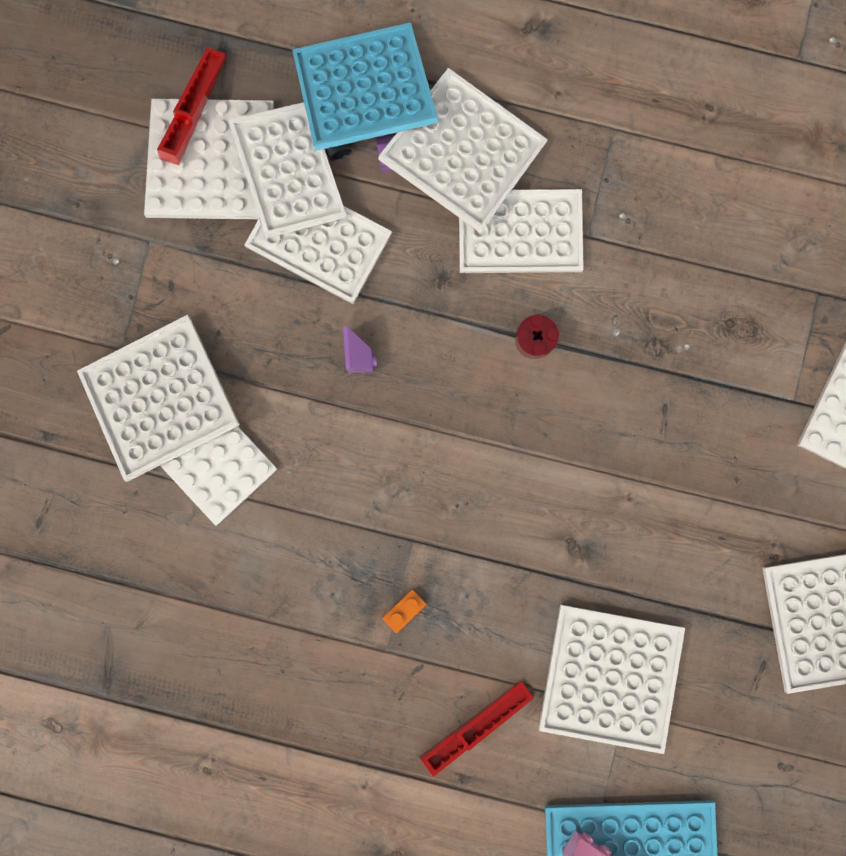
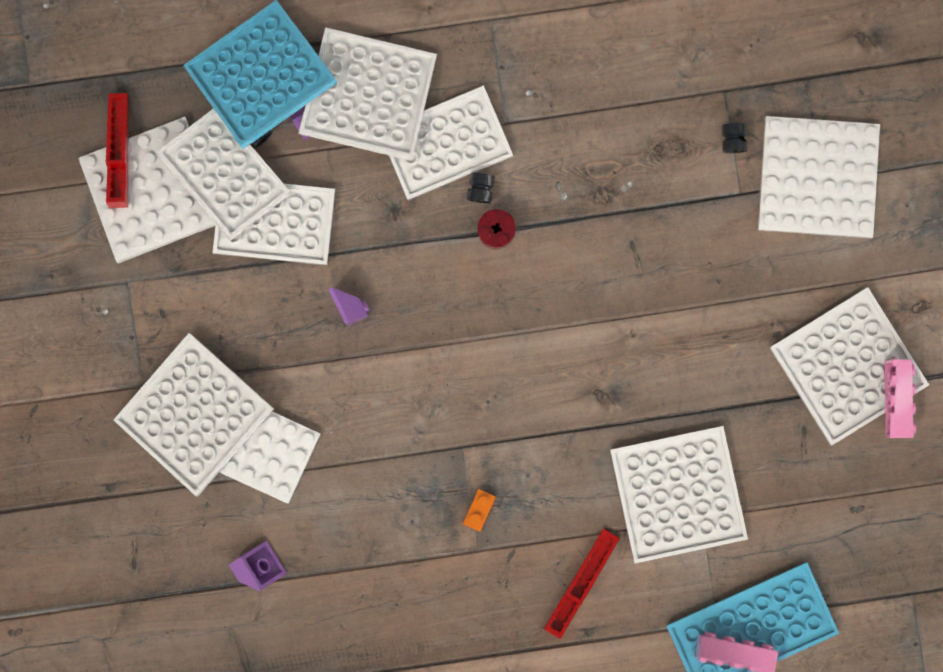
camera: 20 degrees left, 0 degrees up
(159, 578) = (258, 567): none -> medium lavender slope
(538, 287) = (481, 186): none -> black wheel
(812, 343) = (734, 138): none -> black wheel

